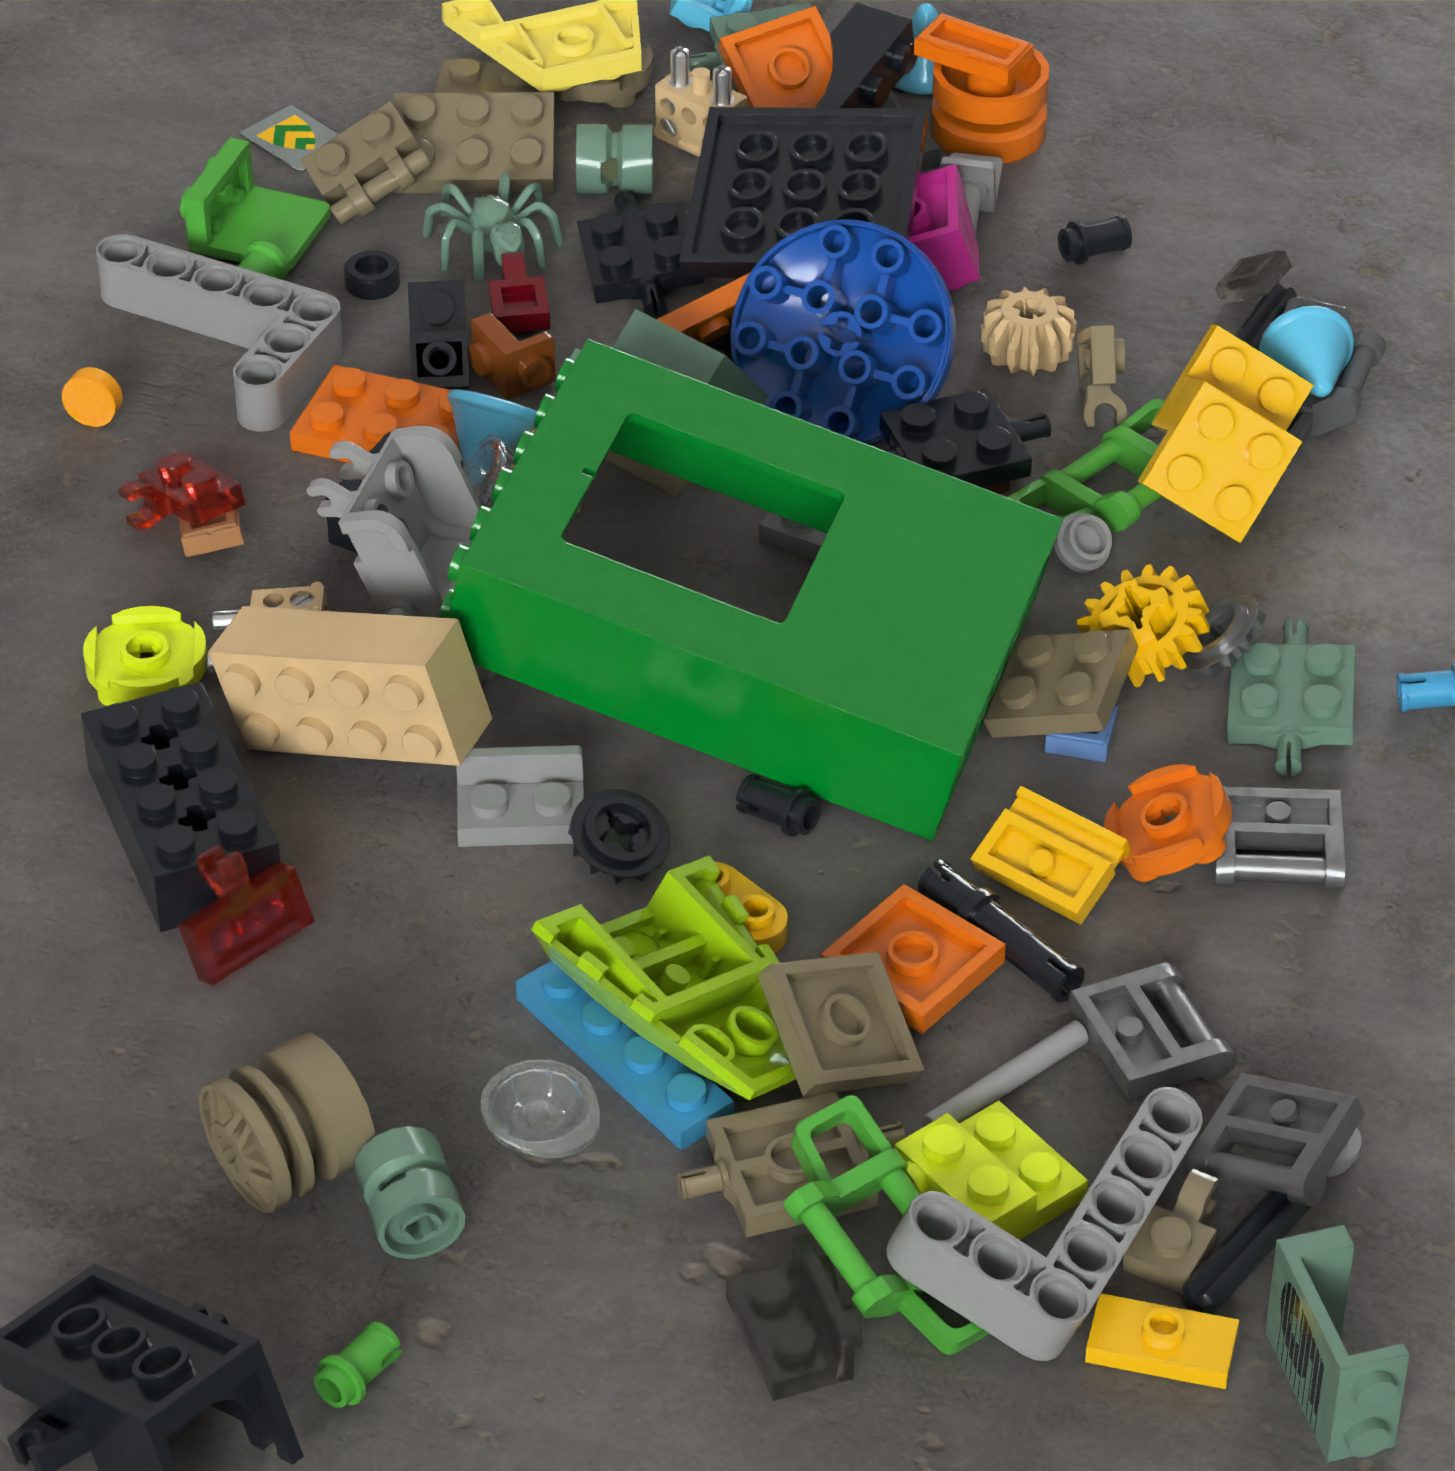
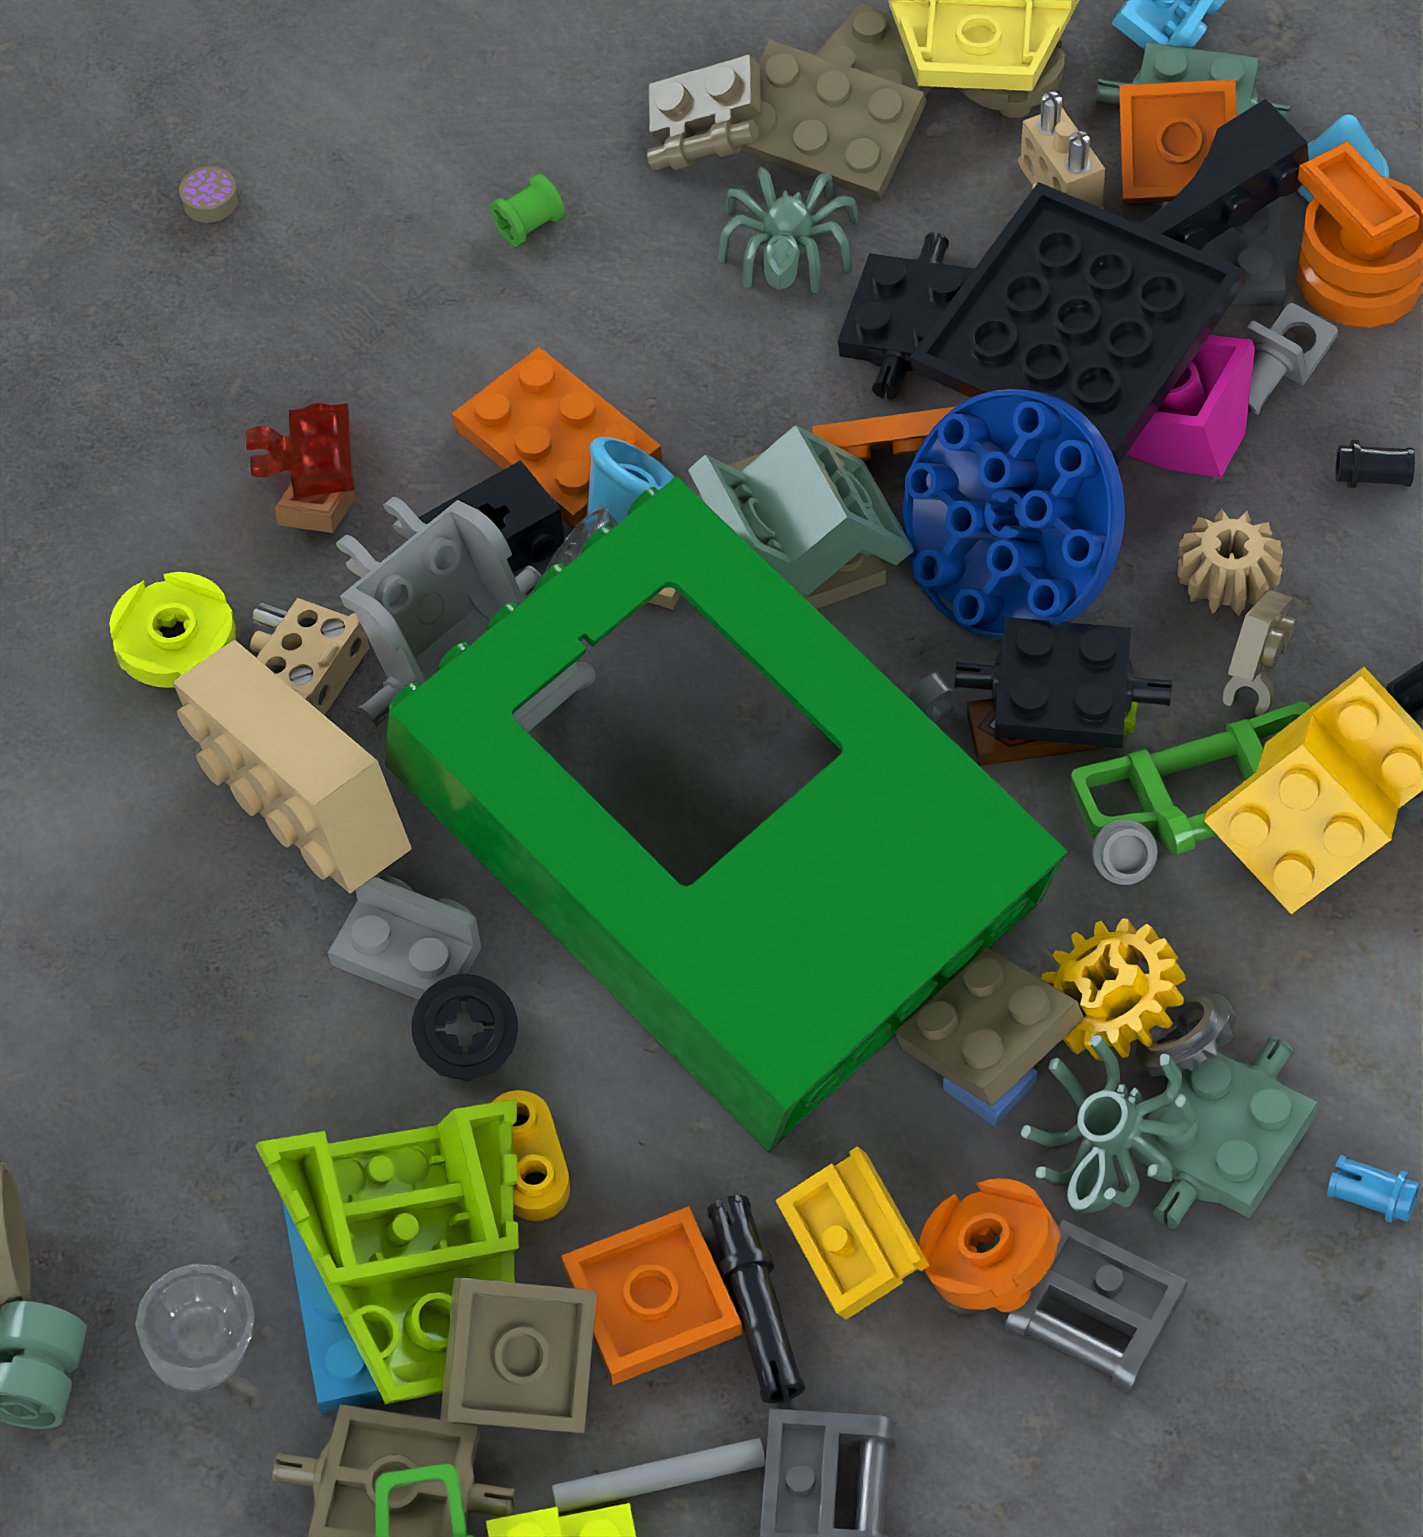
camera: 30 degrees right, 15 degrees up
(92, 396) = (298, 302): light orange tile -> none
(174, 795) = (95, 825): black brick -> none
(230, 212) = (563, 133): bright green bracket -> none
(246, 917) = (73, 979): clear red plate -> none
(286, 326) = (524, 284): light grey beam -> none
(289, 135) = (673, 42): sticker -> none
(372, 275) = (644, 245): black tile -> none
(438, 333) = (661, 345): black slope -> none
(507, 363) = (705, 416): dark orange bracket -> none
(518, 300) = (757, 332): dark red plate -> none
(634, 164) = (944, 192): sand green wheel -> none
(792, 810) = (644, 1064): black pin -> none
(1210, 709) = (1112, 1127): none -> sand green animal

